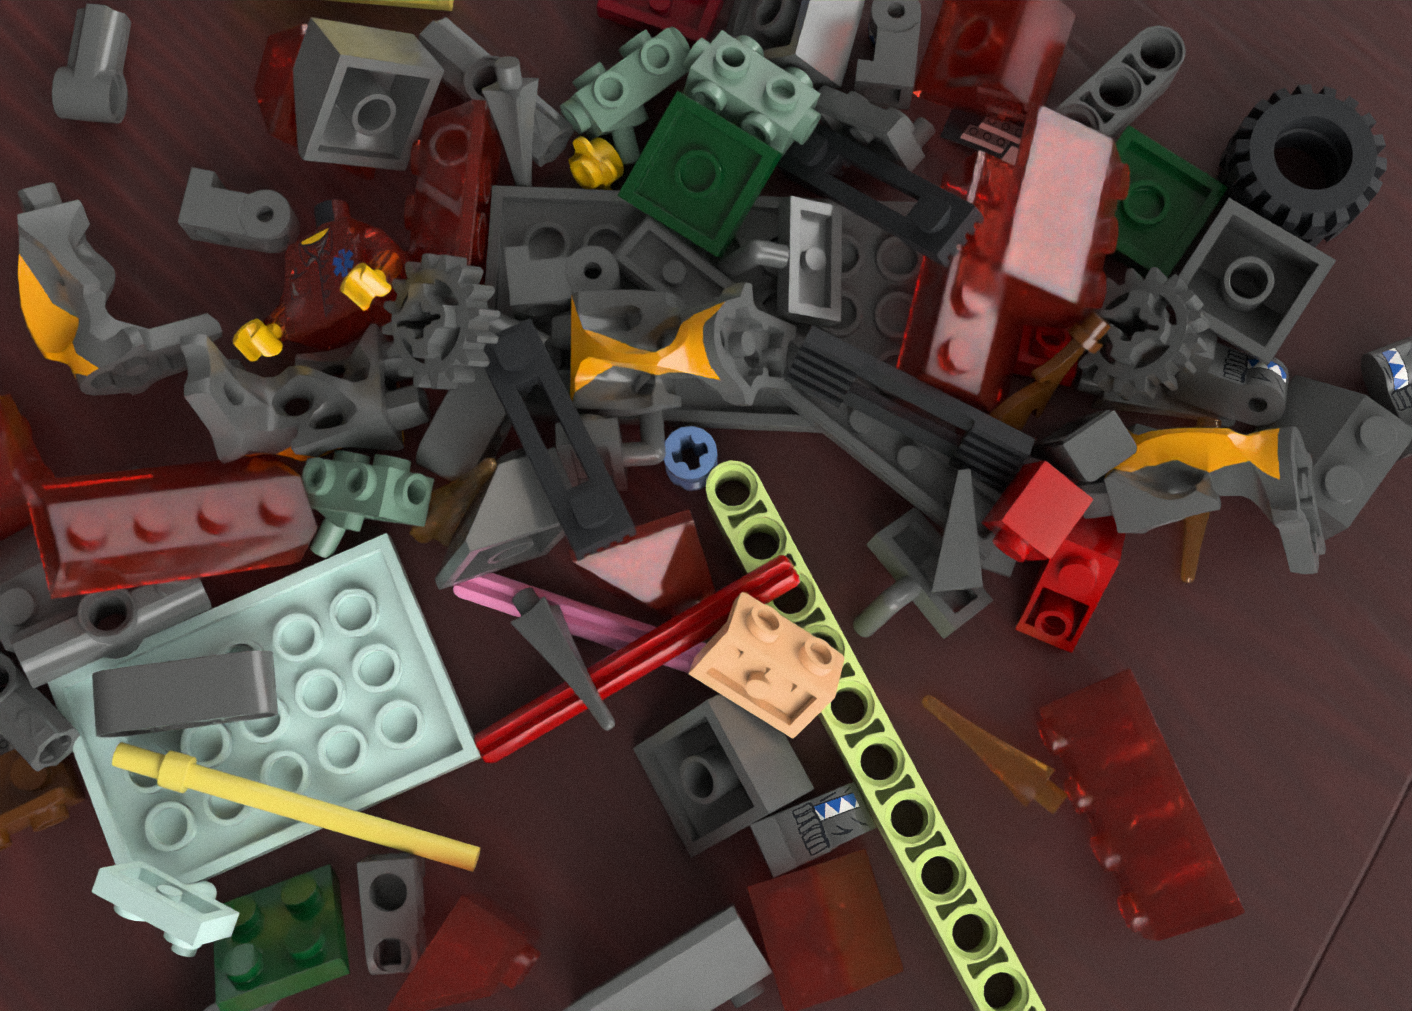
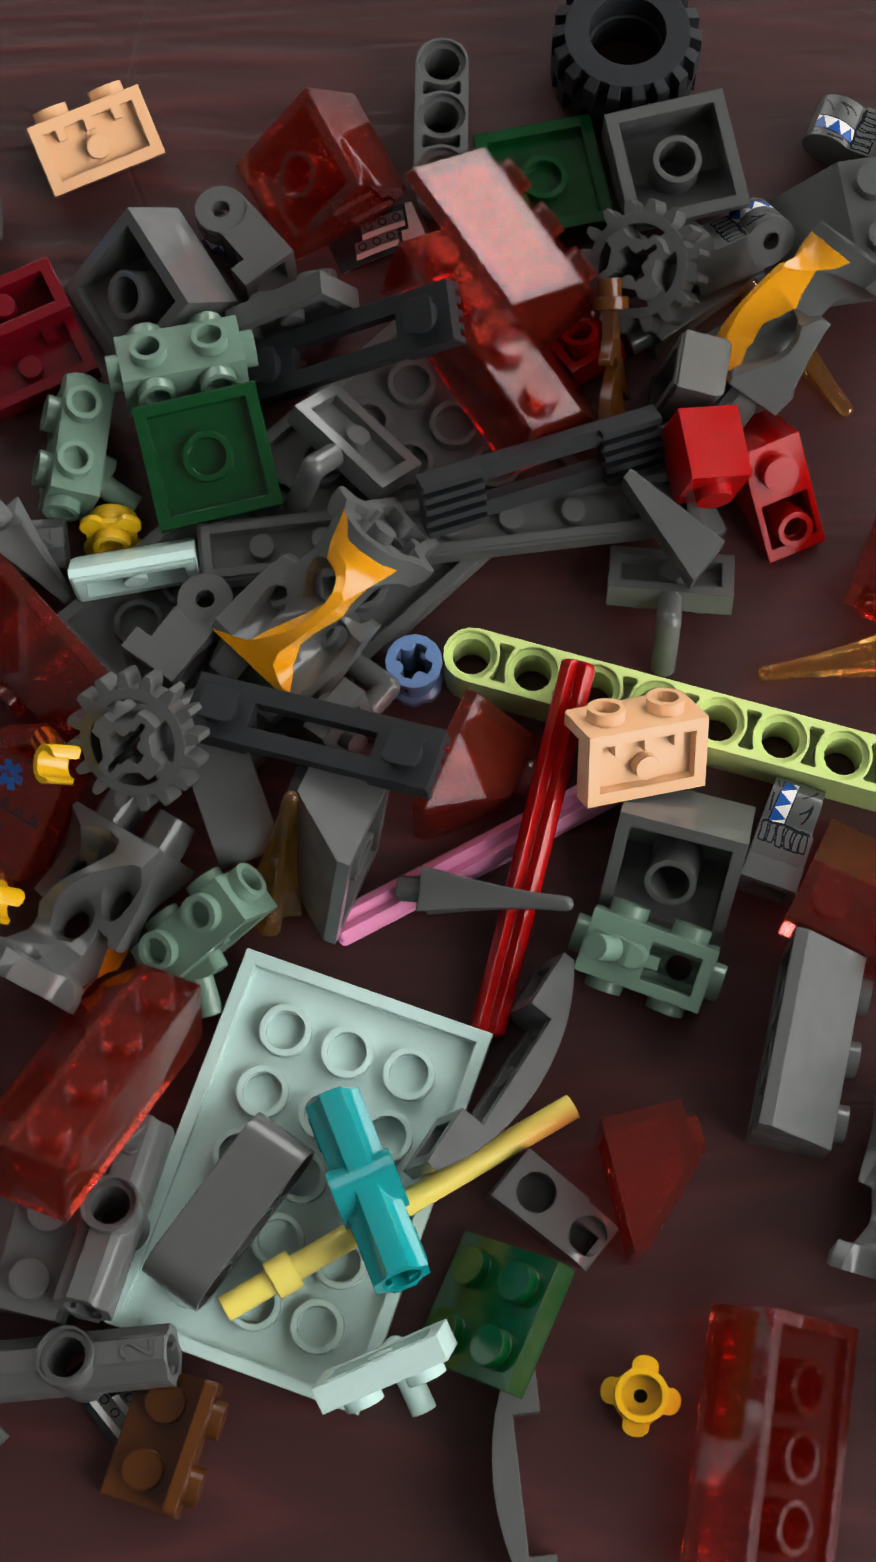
camera: 50 degrees left, 5 degrees down
(275, 776) = (367, 1190): none -> teal piece
(530, 774) = (543, 1014): none -> dark grey slope
(576, 202) = (133, 569): none -> light aqua slope
(626, 800) = (627, 951): none -> sand green brick

